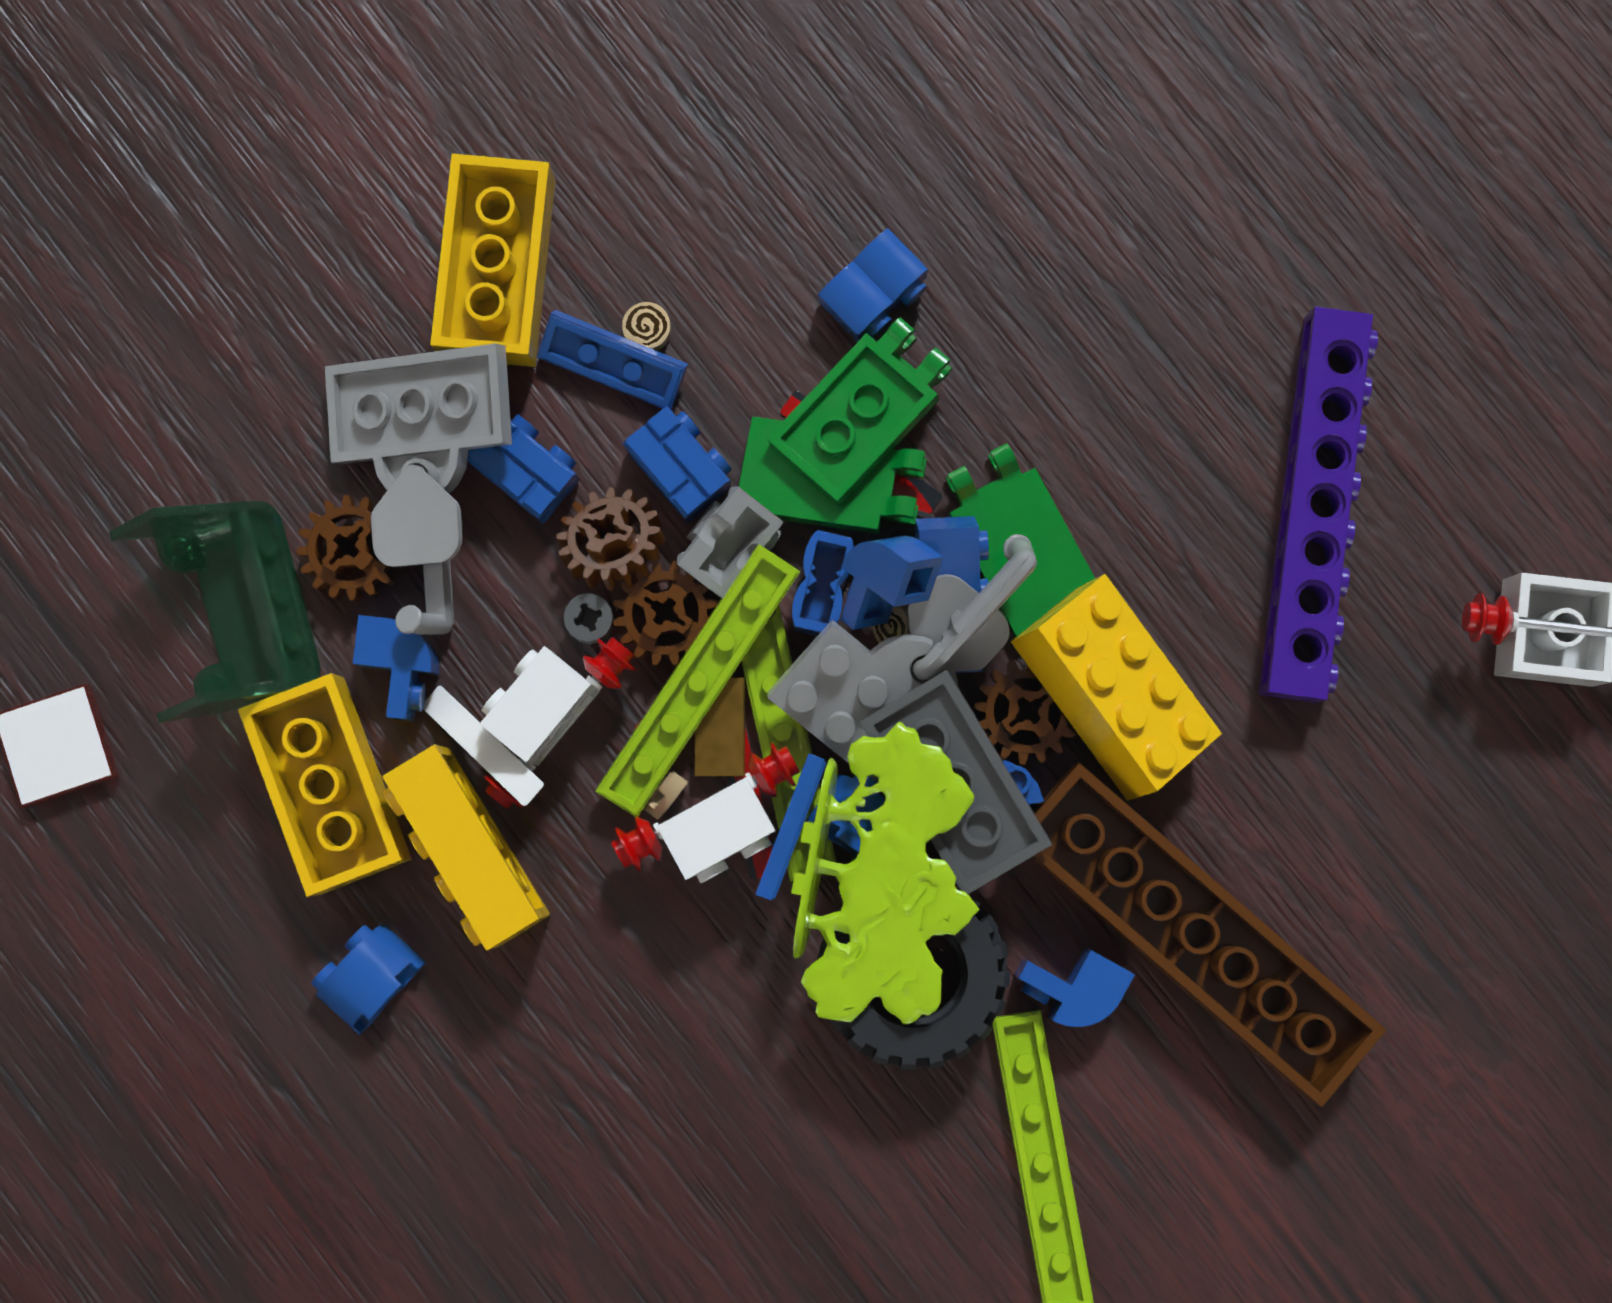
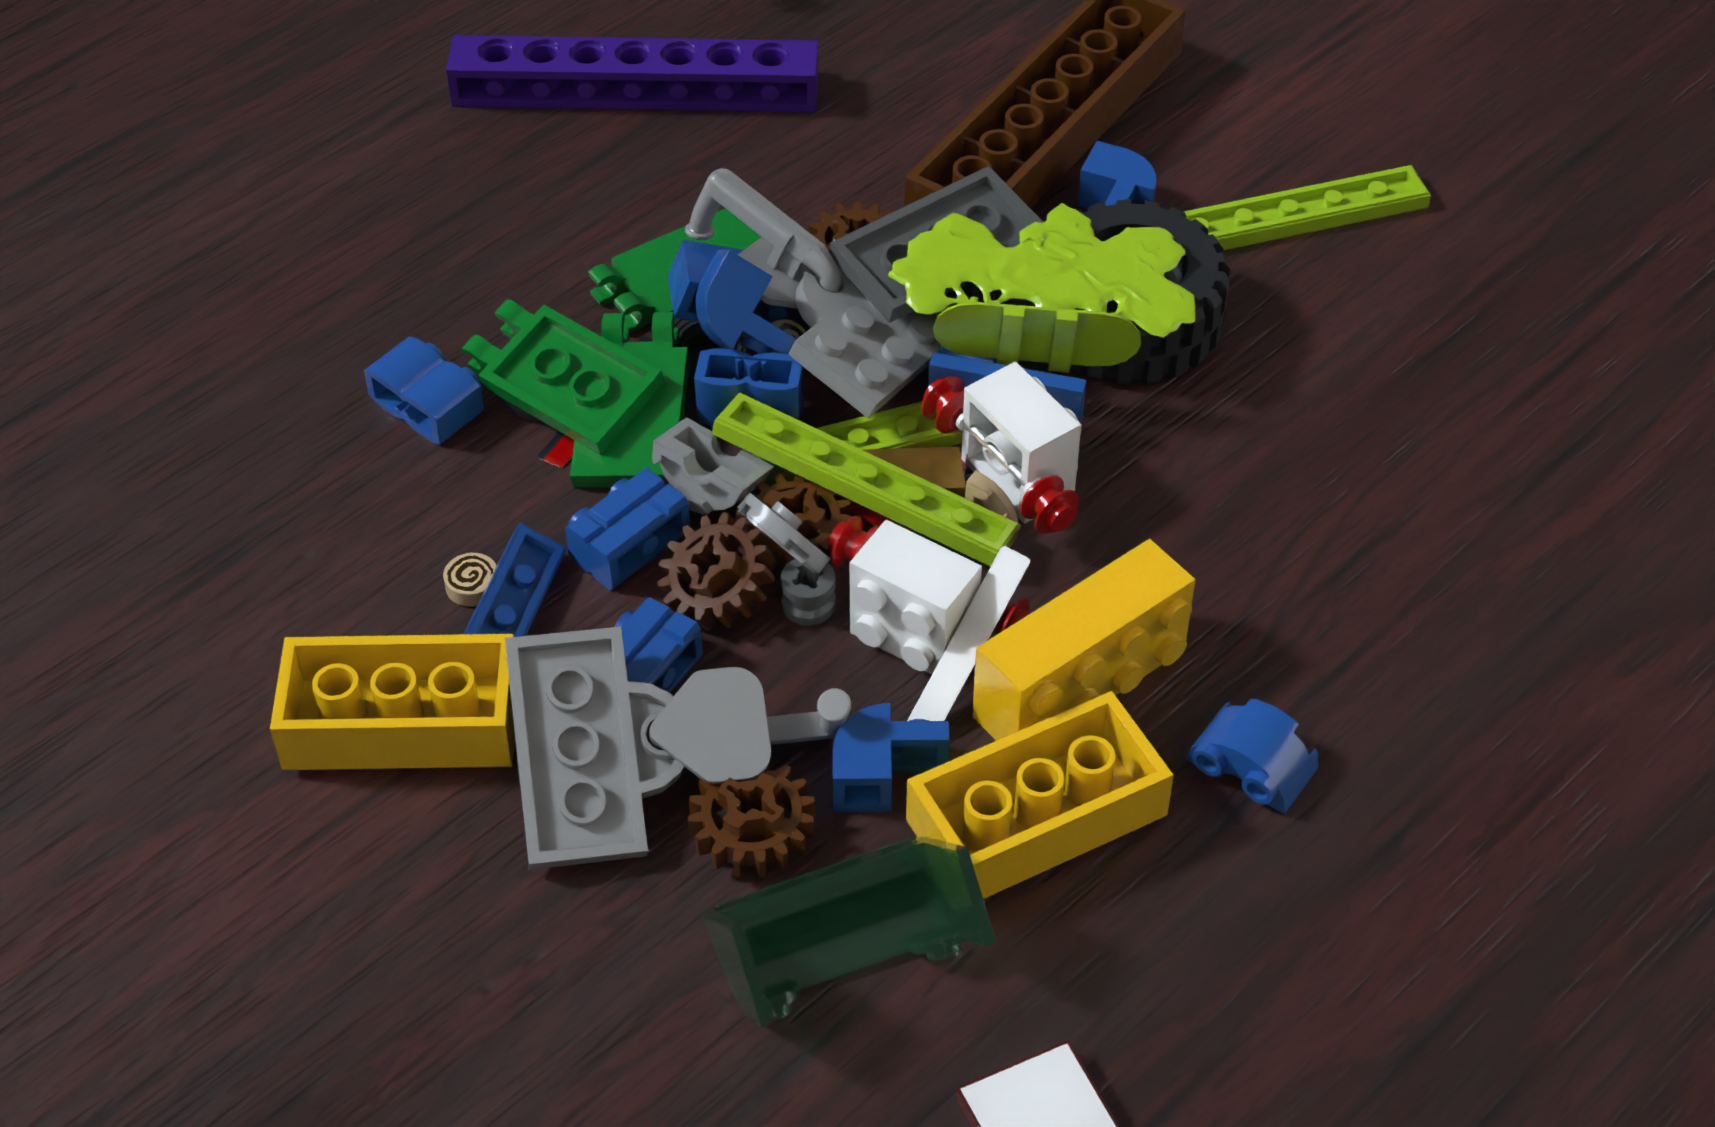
camera: 95 degrees left, 35 degrees down
(623, 592) = (782, 527): none -> light grey plate
(1116, 688) = (835, 159): yellow brick -> none

